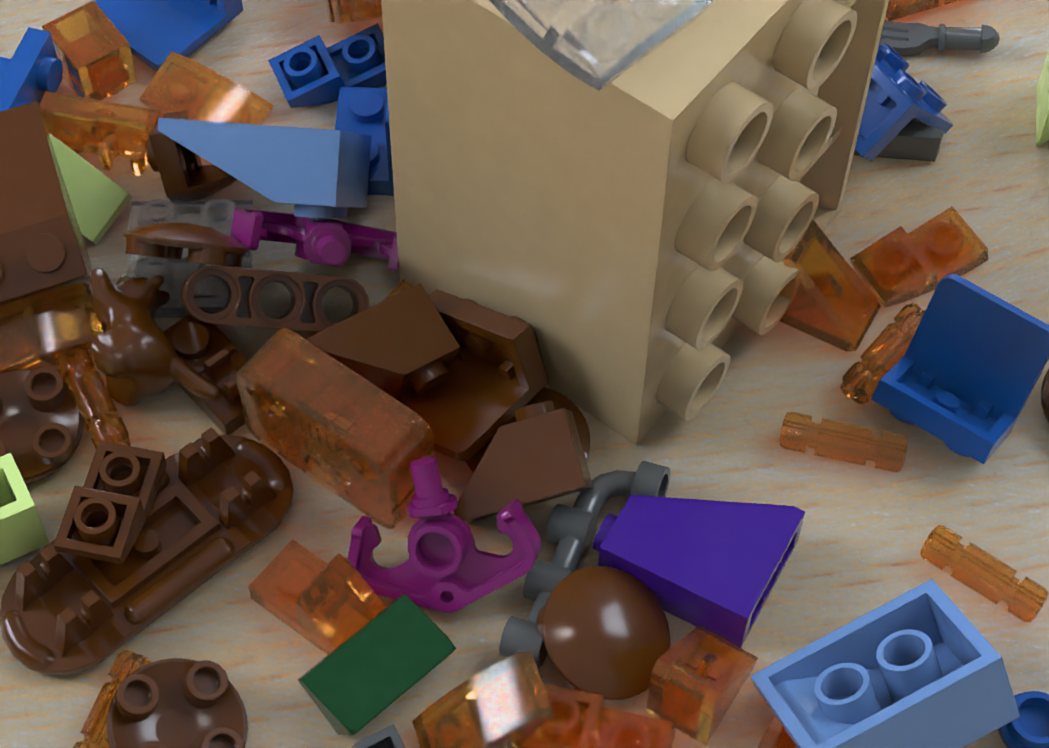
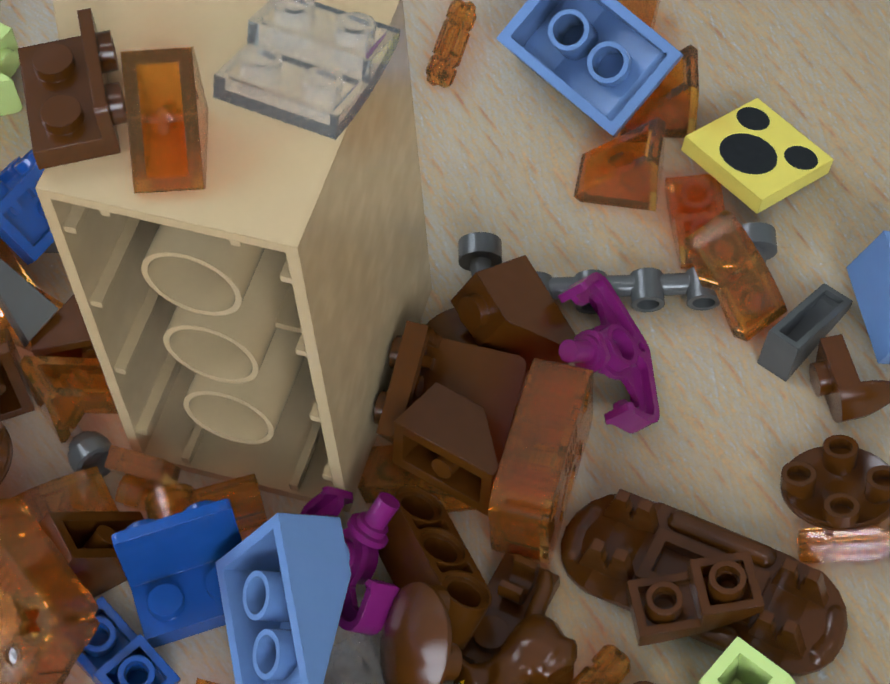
camera: 105 degrees left, 0 degrees up
(315, 597) = (682, 442): clear orange slope -> none
(376, 665) = (723, 367): dark green slope -> none
(604, 631) = (620, 234): reddish brown dish -> none
(703, 556) = (526, 193): dark purple slope -> none

